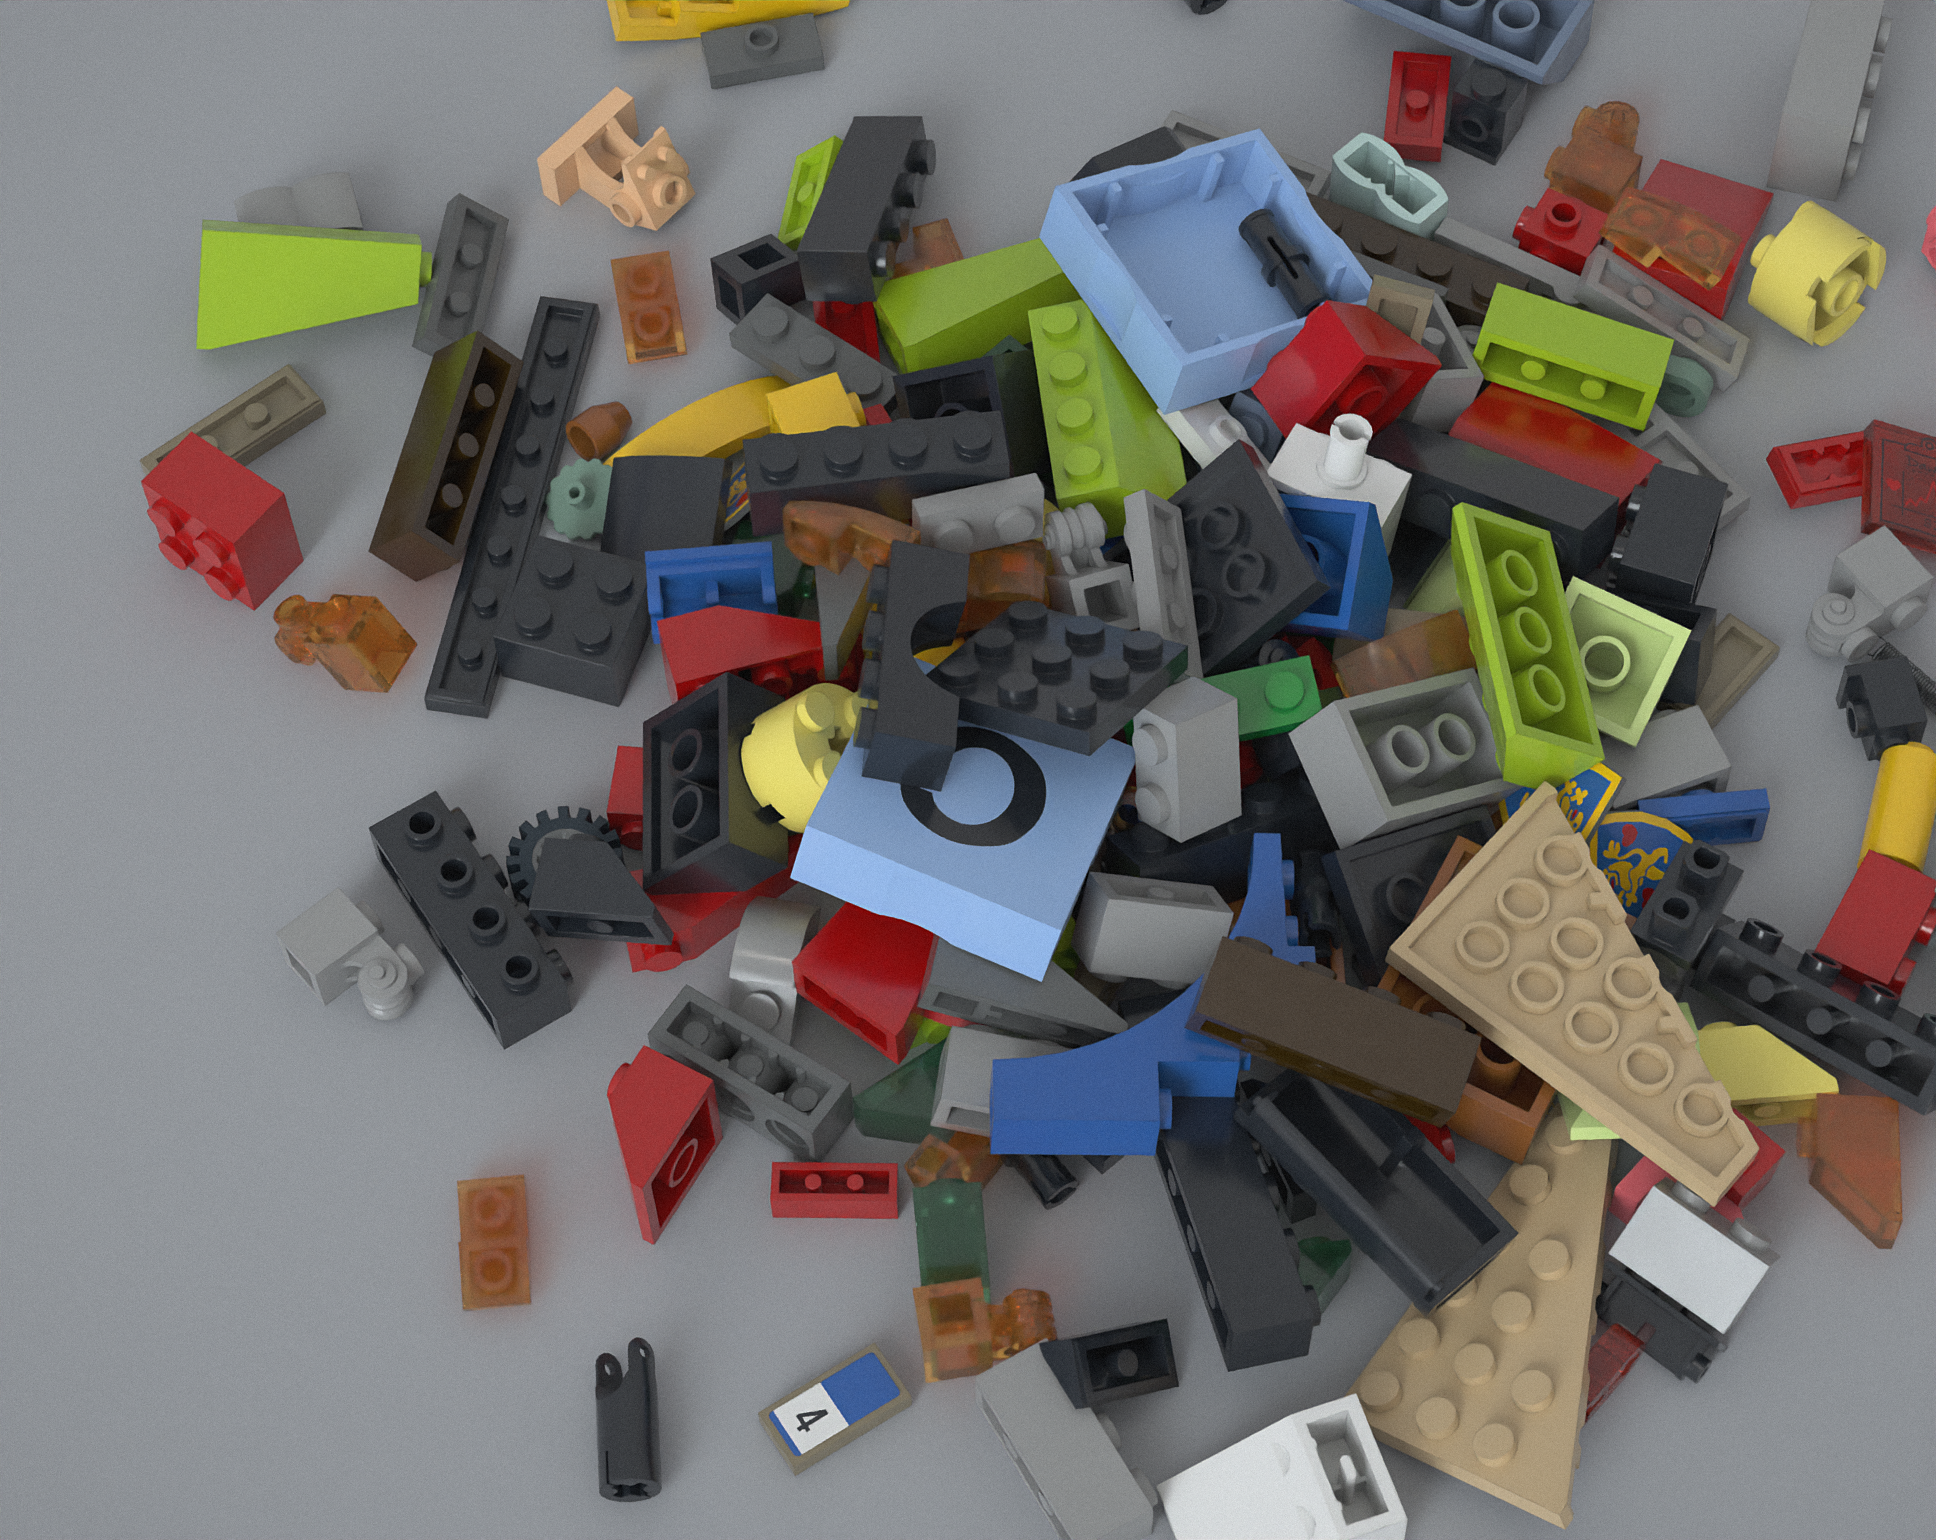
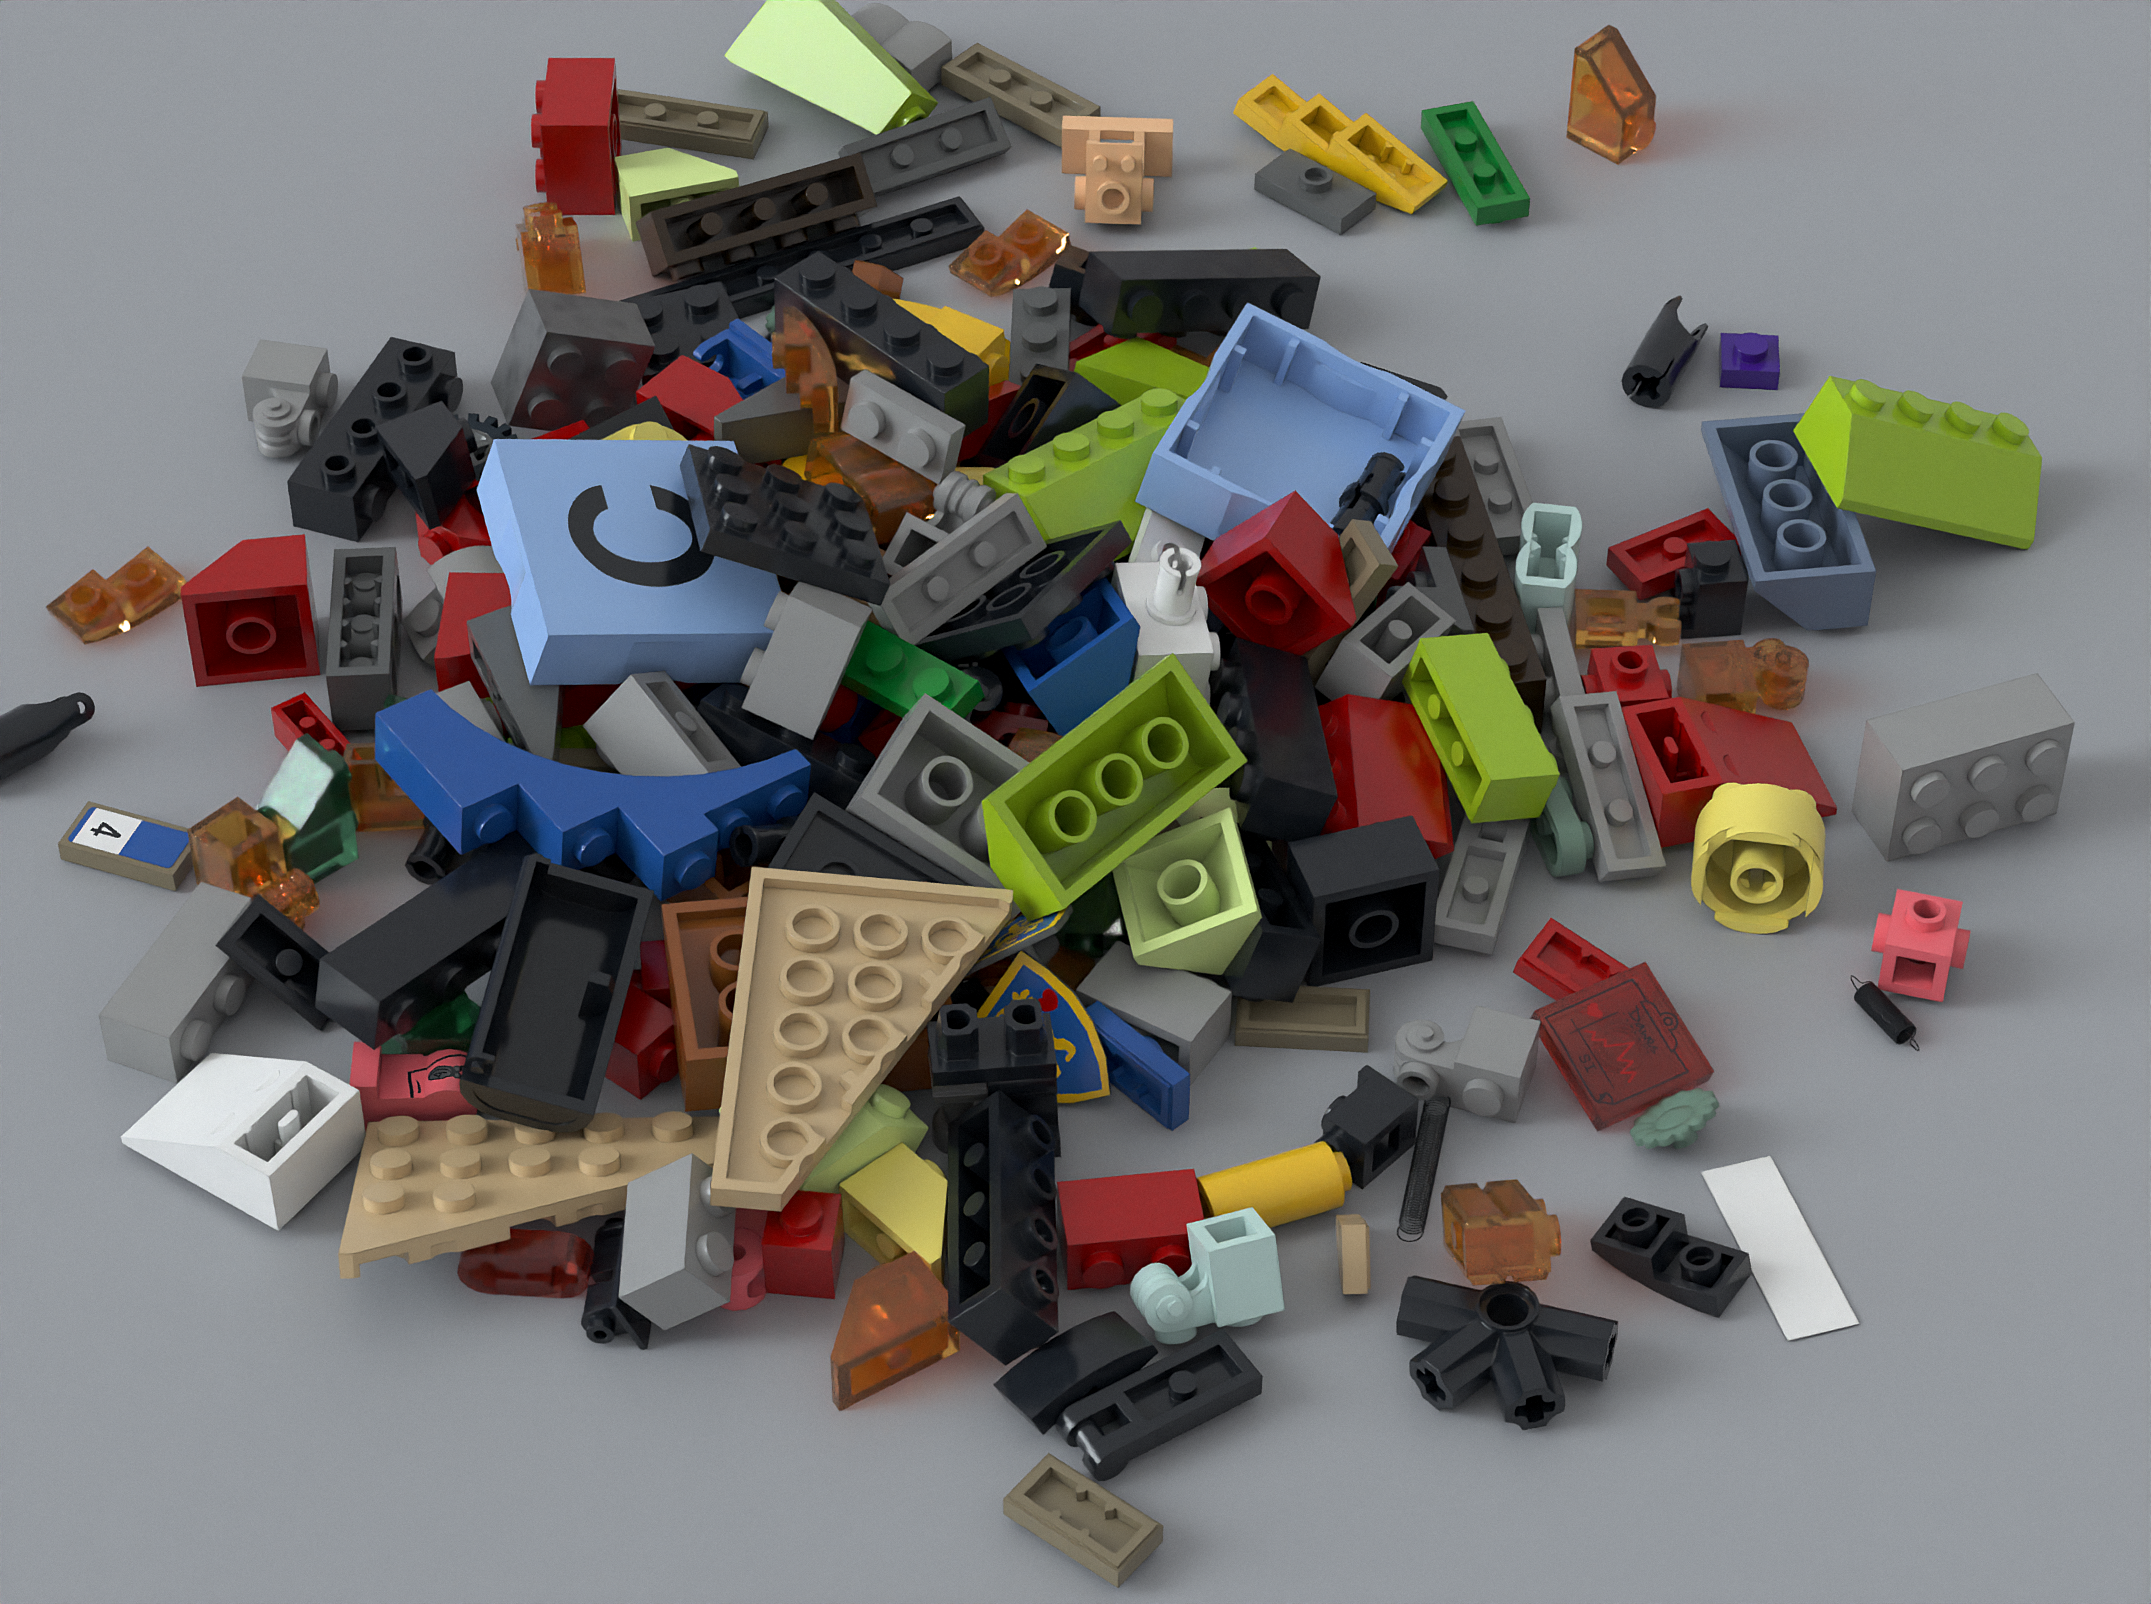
camera: 50 degrees right, 15 degrees down
(341, 500) = (664, 179): none -> yellowish green slope
(443, 169) = (1015, 91): none -> dark tan plate
(556, 710) = (571, 361): none -> flat silver brick
(909, 718) = (771, 420): black arch -> none
(1334, 1030) = (628, 859): dark brown brick -> none
(1334, 1354) = (409, 1084): none -> coral leg
(1472, 184) = (1617, 619): none -> clear orange plate
(1657, 226) = (1664, 720): clear orange slope -> none

